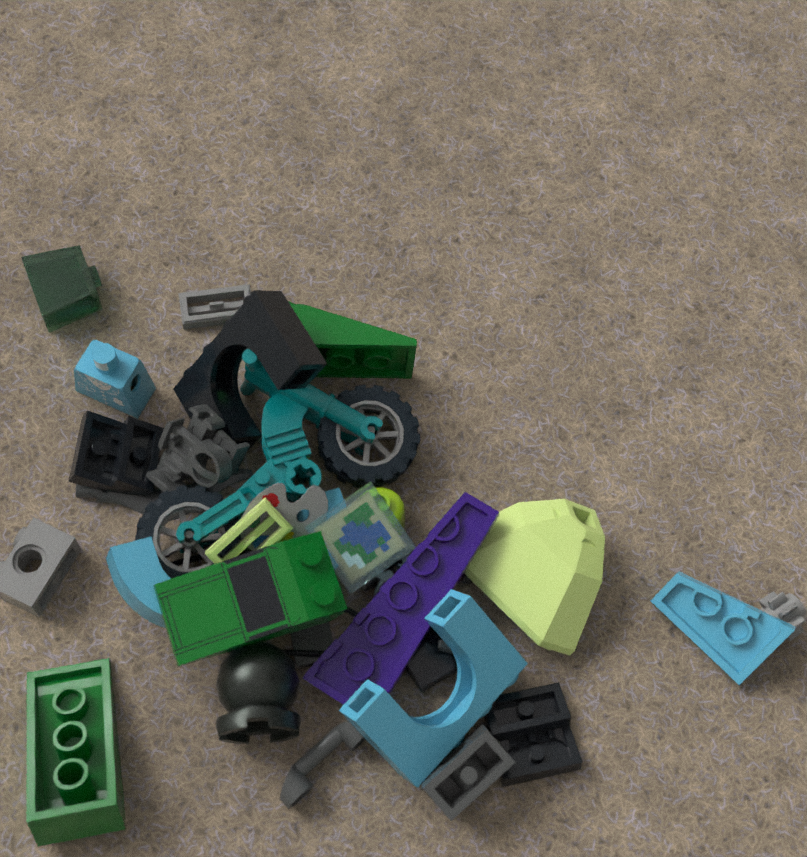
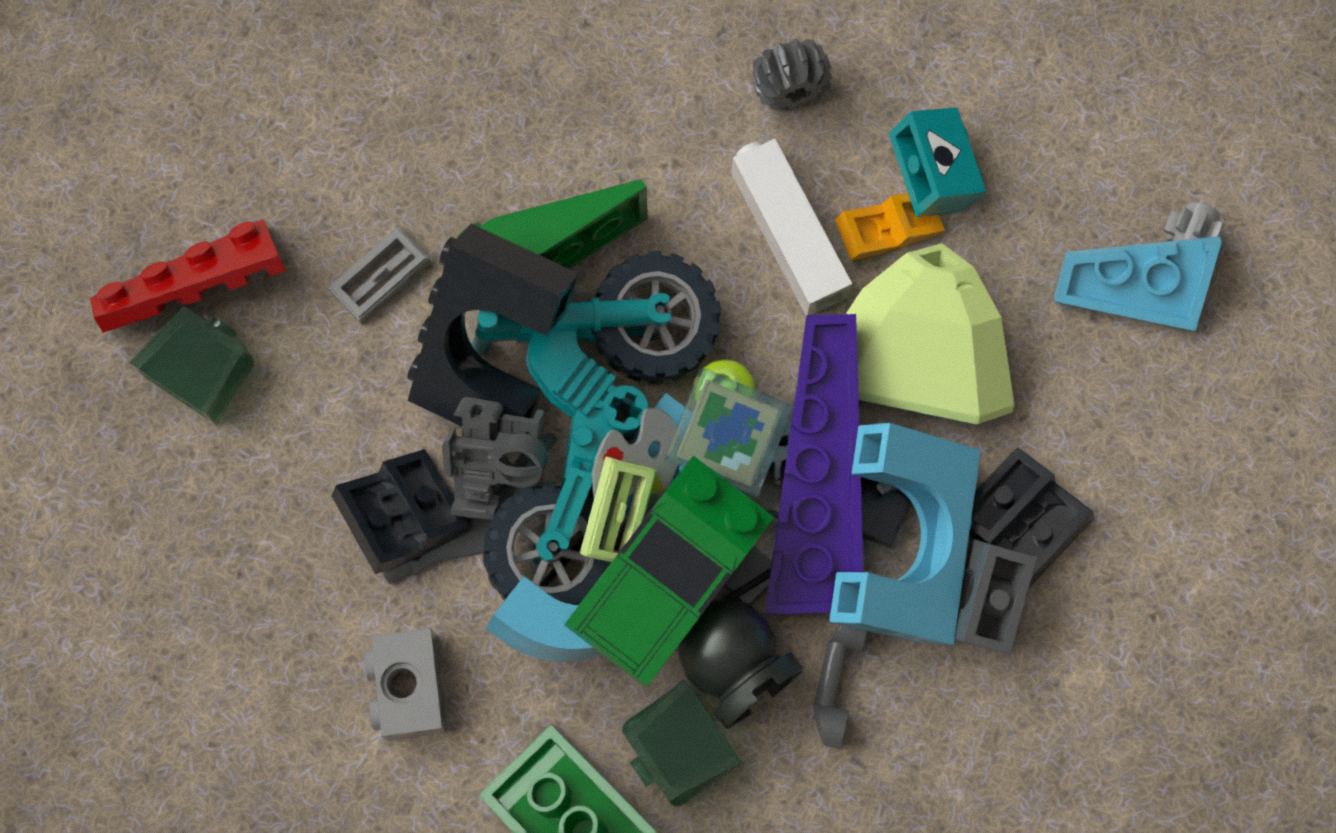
camera: 25 degrees left, 10 degrees up
(94, 233) = (186, 278): none -> red wing
(108, 377) = (336, 431): medium azure torso -> none
(179, 729) = (678, 746): none -> clear green torso
(500, 438) = (790, 226): none -> white brick
(566, 344) = (791, 74): none -> dark grey gear
(569, 481) = (885, 227): none -> light orange slope
(627, 457) = (937, 161): none -> teal brick

